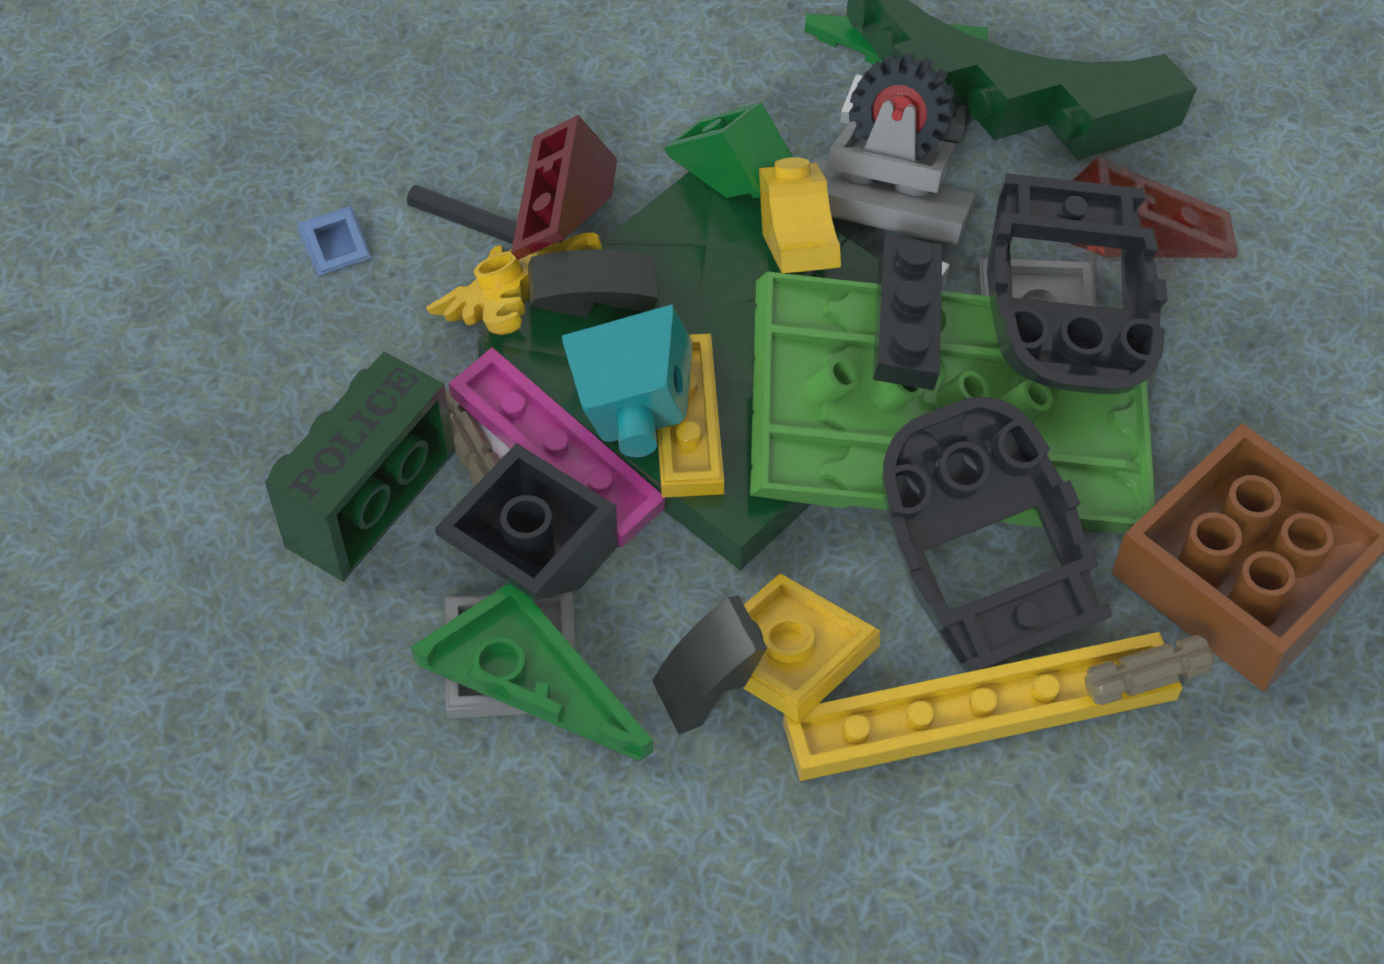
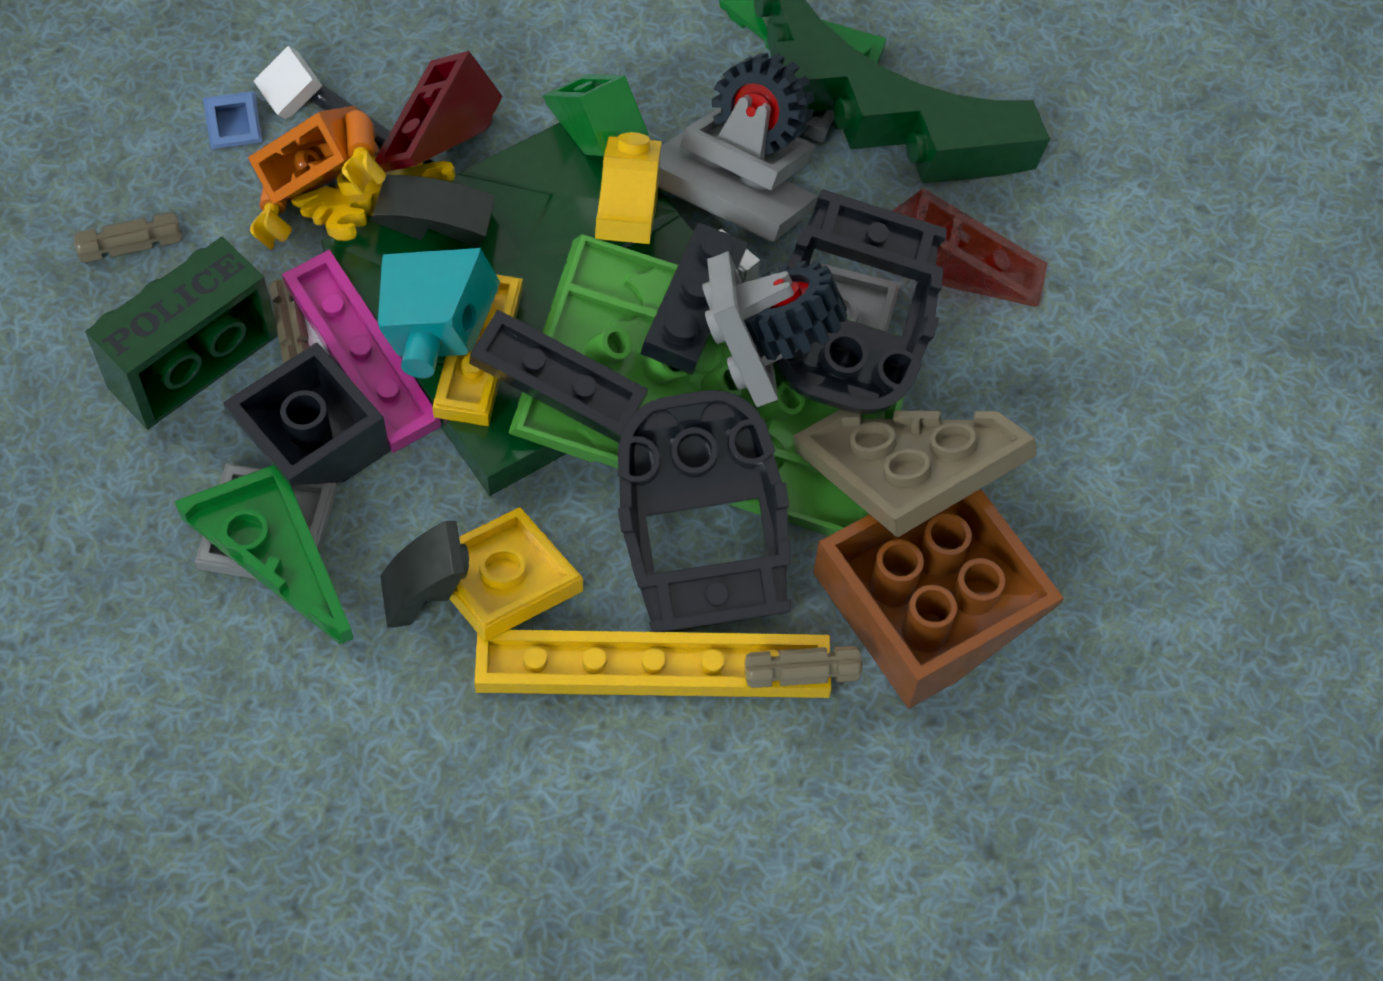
camera: 10 degrees right, 5 degrees up
(258, 383) = (127, 237): none -> dark tan axle
(382, 191) = (287, 83): none -> white tile
(444, 256) = (309, 159): none -> orange torso
(794, 421) = (557, 375): none -> black plate
(1009, 309) = (769, 318): none -> plate
(1192, 431) = (913, 463): none -> dark tan plate

